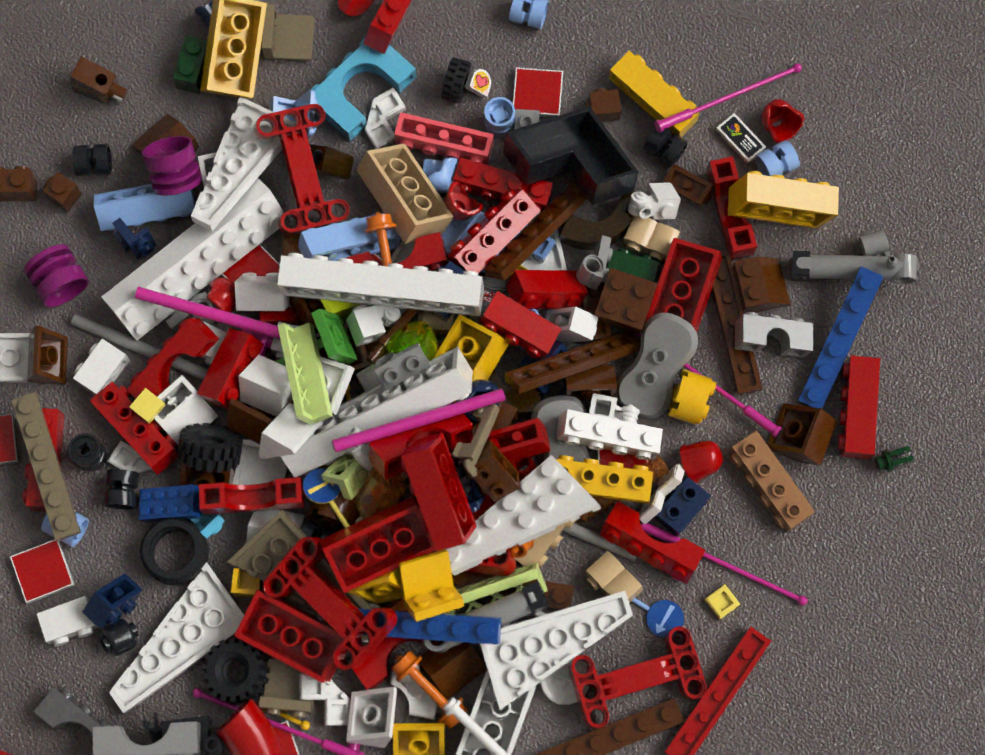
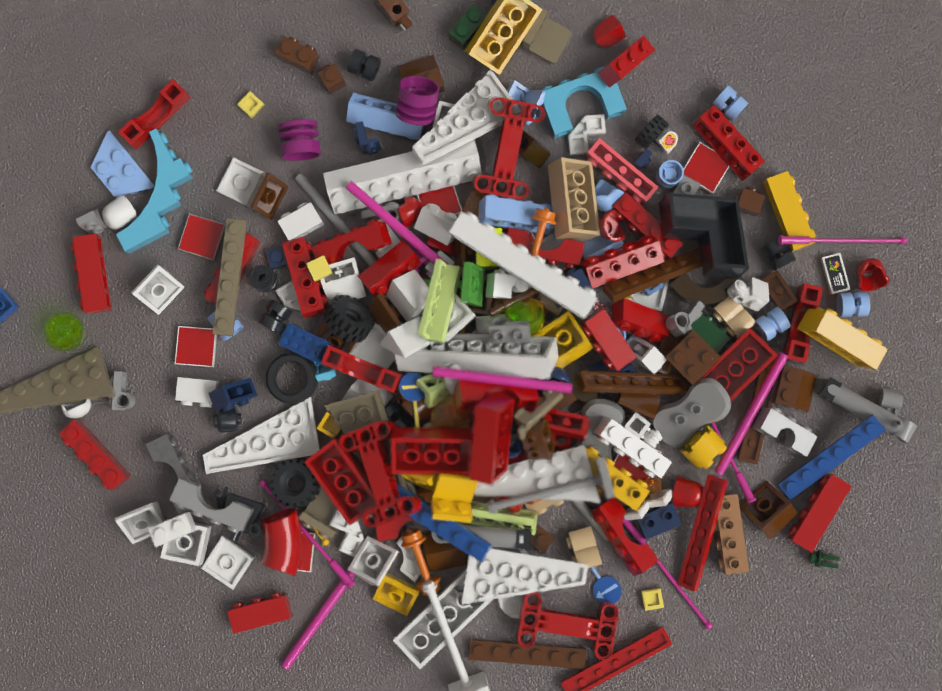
camera: 25 degrees right, 10 degrees up
(92, 421) = (276, 257): none -> dark blue plate
(463, 115) = (644, 160): none -> dark blue plate
(548, 53) = (728, 142): none -> red brick
(590, 479) = (602, 479): none -> light grey tile
(699, 223) = (774, 322): none -> light blue wheel
(725, 333) = (751, 413): none -> dark pink piece
(739, 494) = (702, 532): none -> red plate

